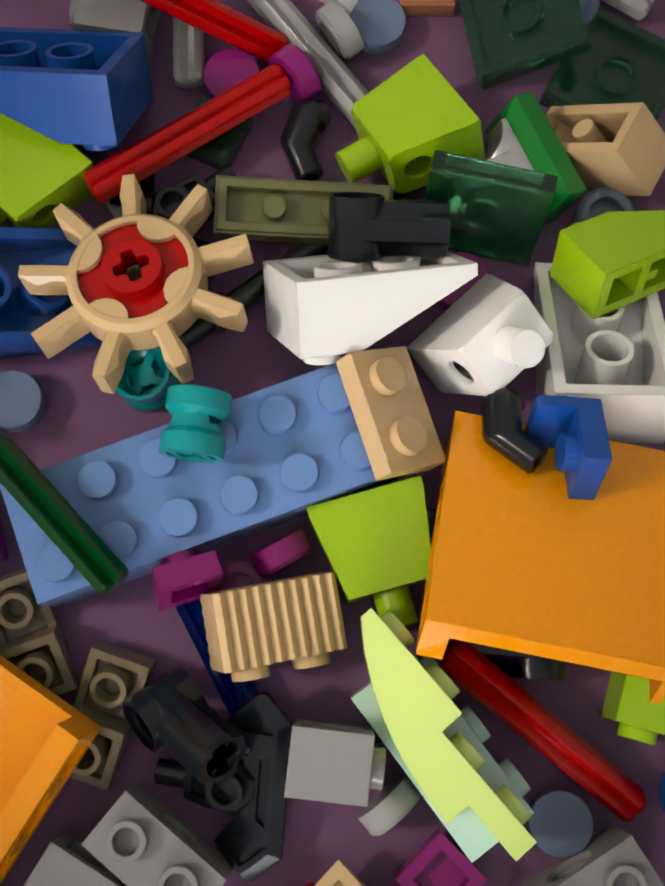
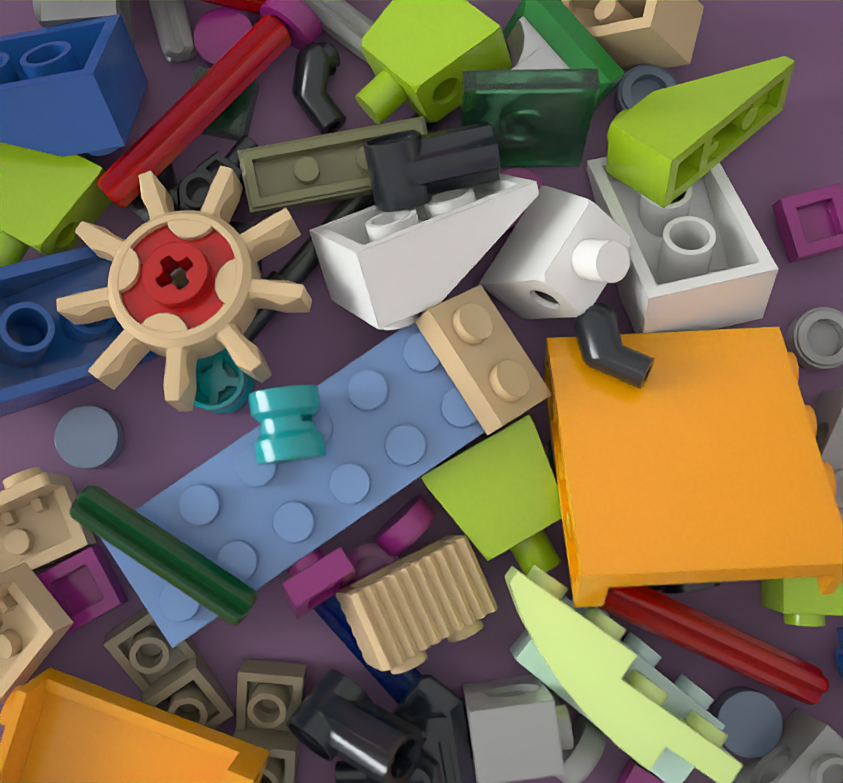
camera: 15 degrees left, 5 degrees up
(579, 437) = (686, 343): blue bracket -> none

